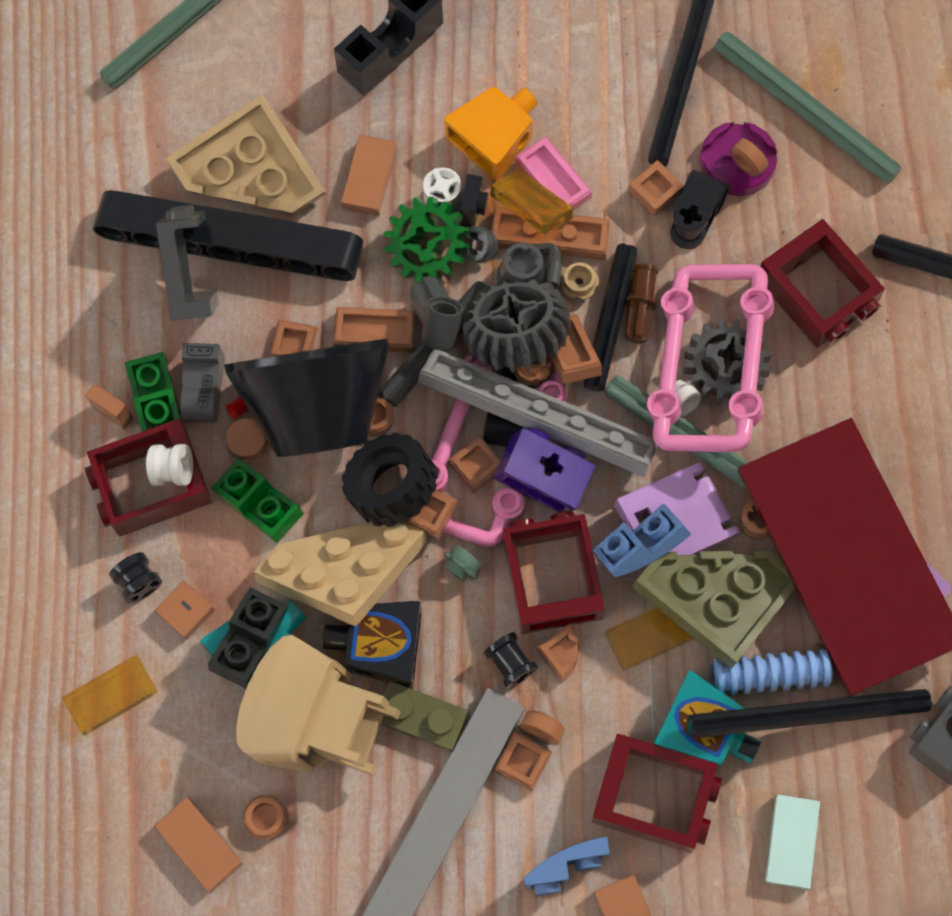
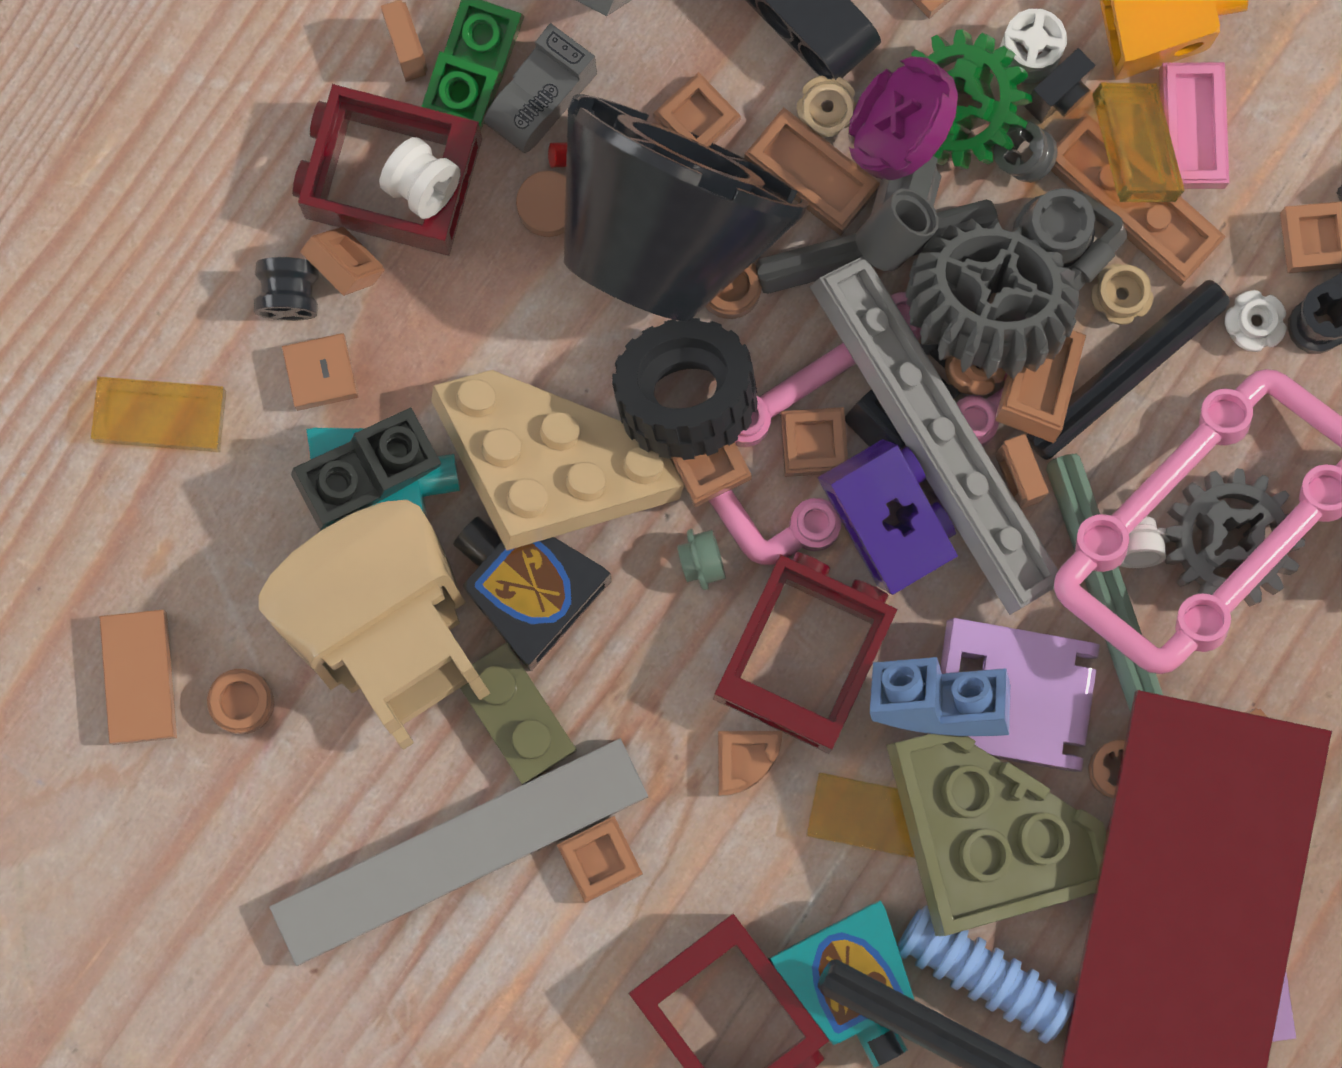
camera: 30 degrees right, 10 degrees up
(156, 541) = (342, 260): none -> nougat tile
(257, 500) = (506, 294): green slope -> none
(368, 286) = (821, 89): none -> tan plate
(404, 266) = (903, 118): none -> magenta tile
(510, 660) = (673, 724): black bush -> none
(542, 727) = (651, 836): nougat tile -> none
(553, 872) = (536, 1021): medium blue slope -> none
(595, 401) = (1021, 471): none -> nougat tile
(640, 303) = (1180, 379): reddish brown axle -> none
(660, 258) = (1253, 337): none -> white plate

